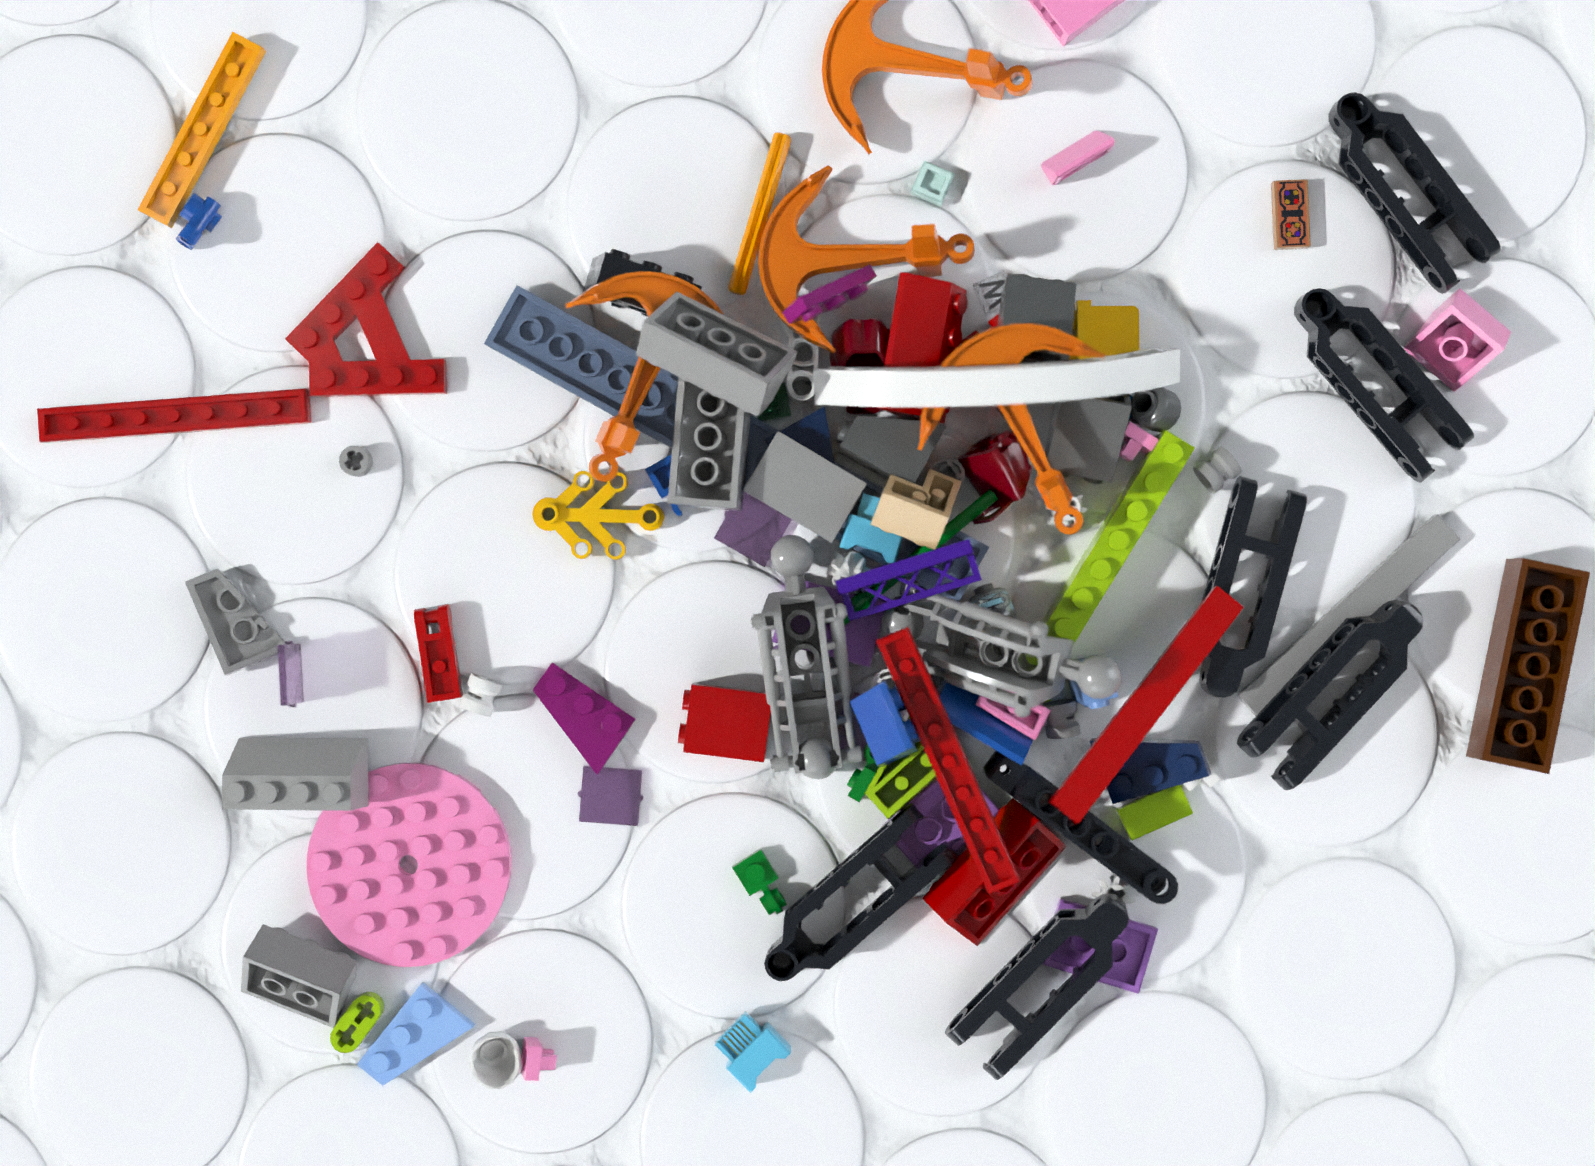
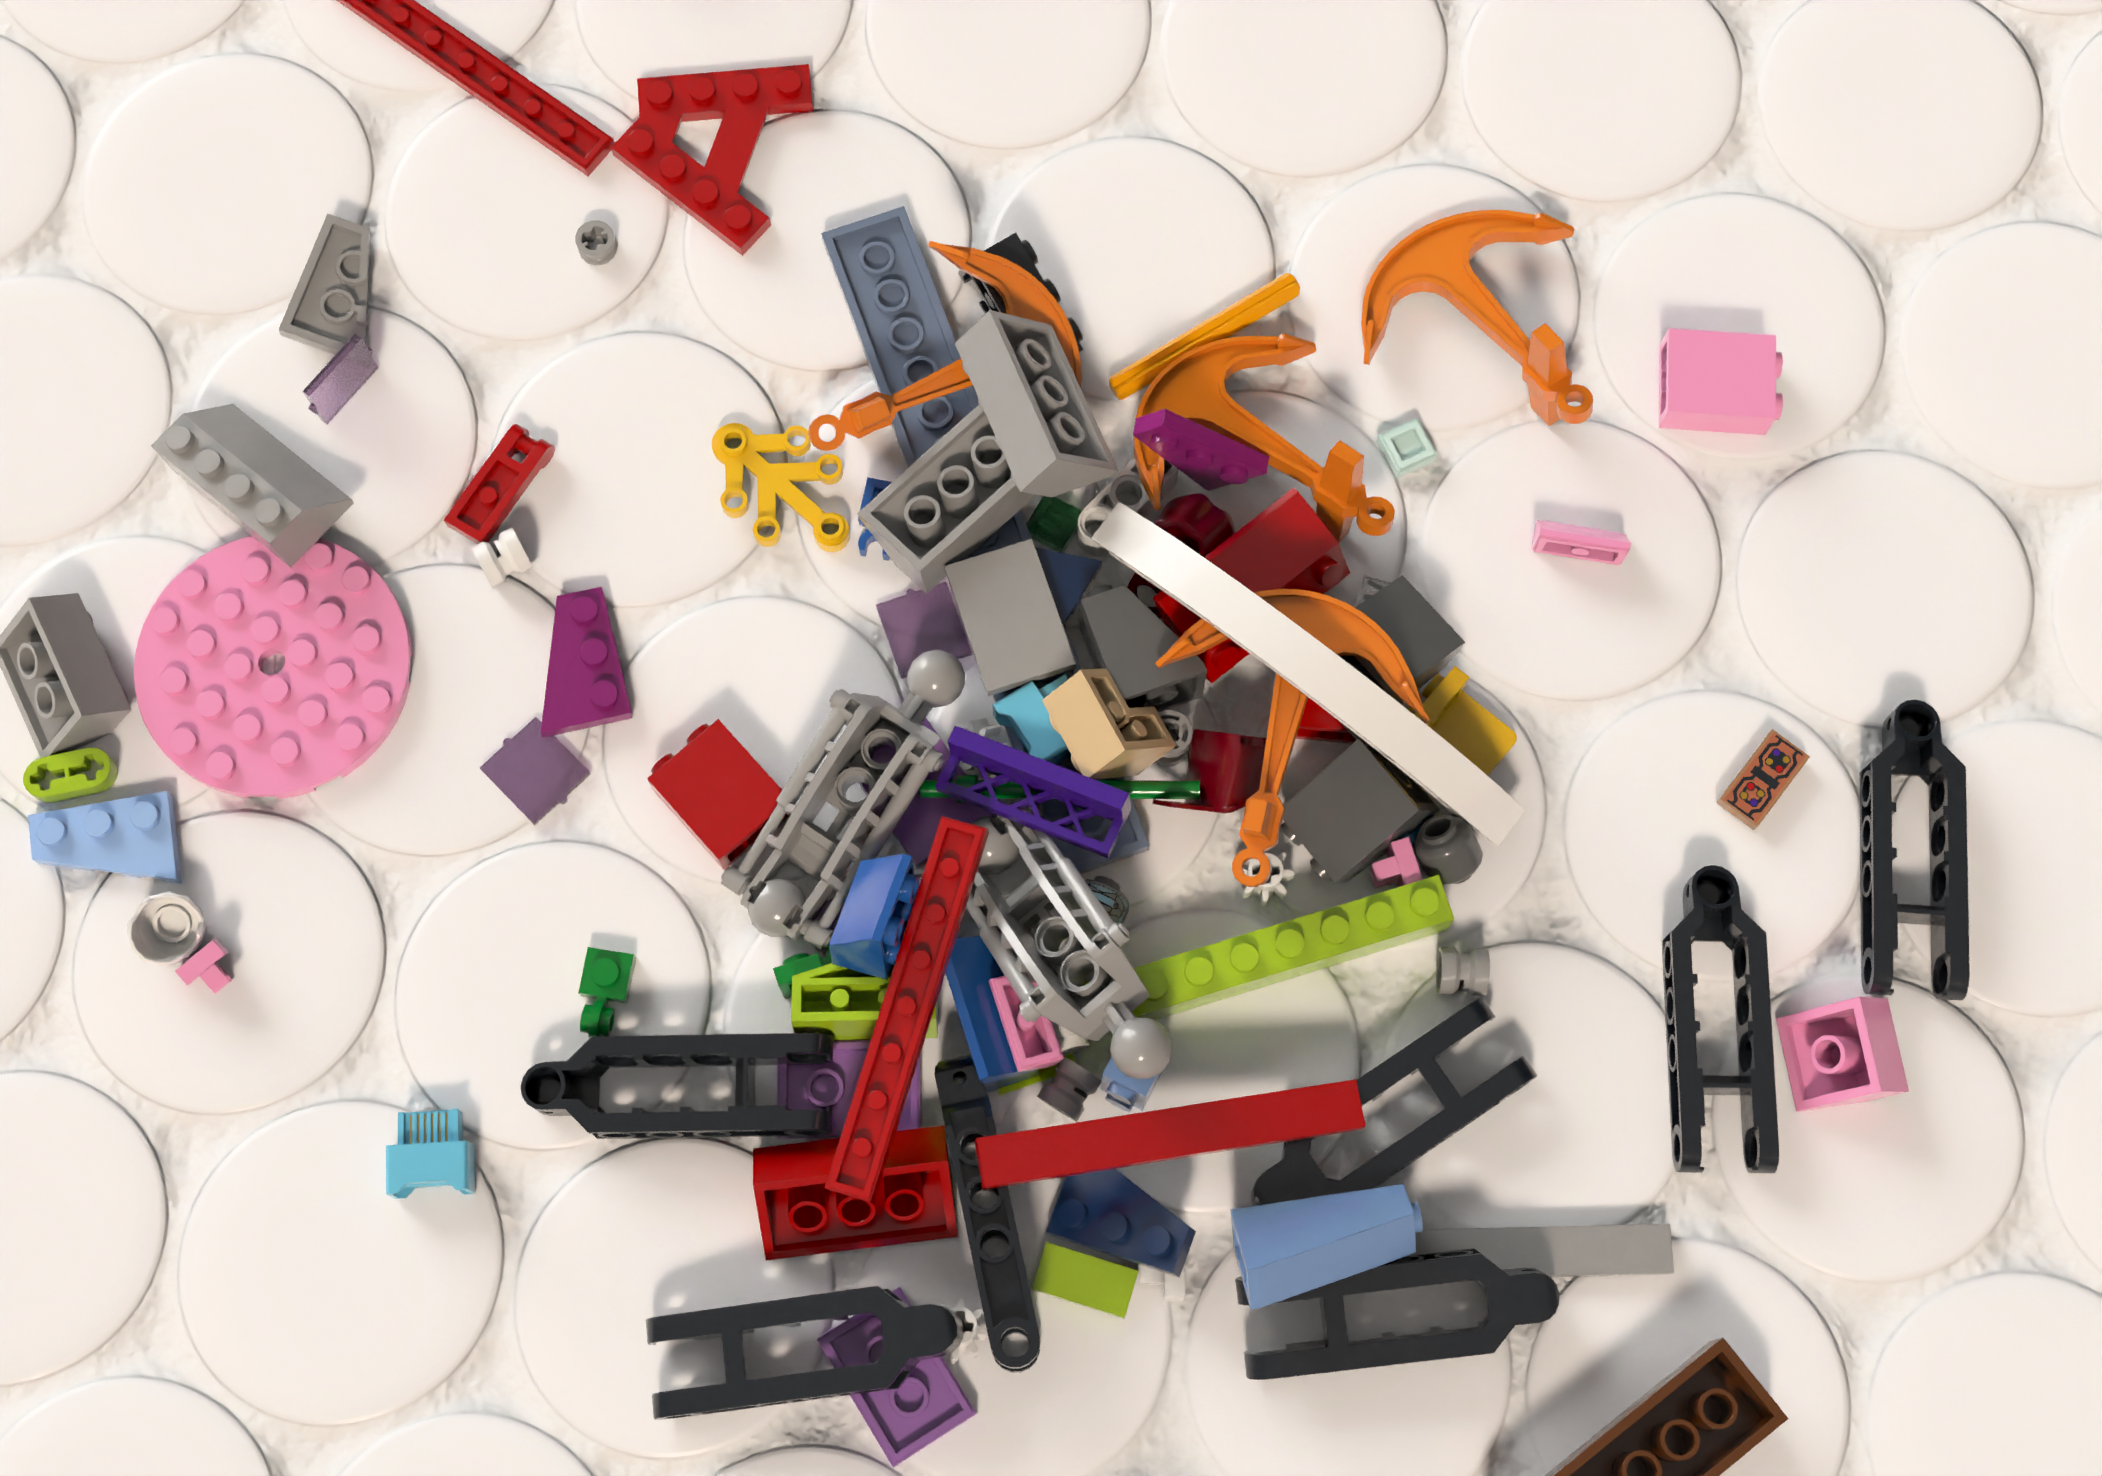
camera: 45 degrees right, 15 degrees down
(1270, 690) = (1320, 1240): none -> medium blue slope

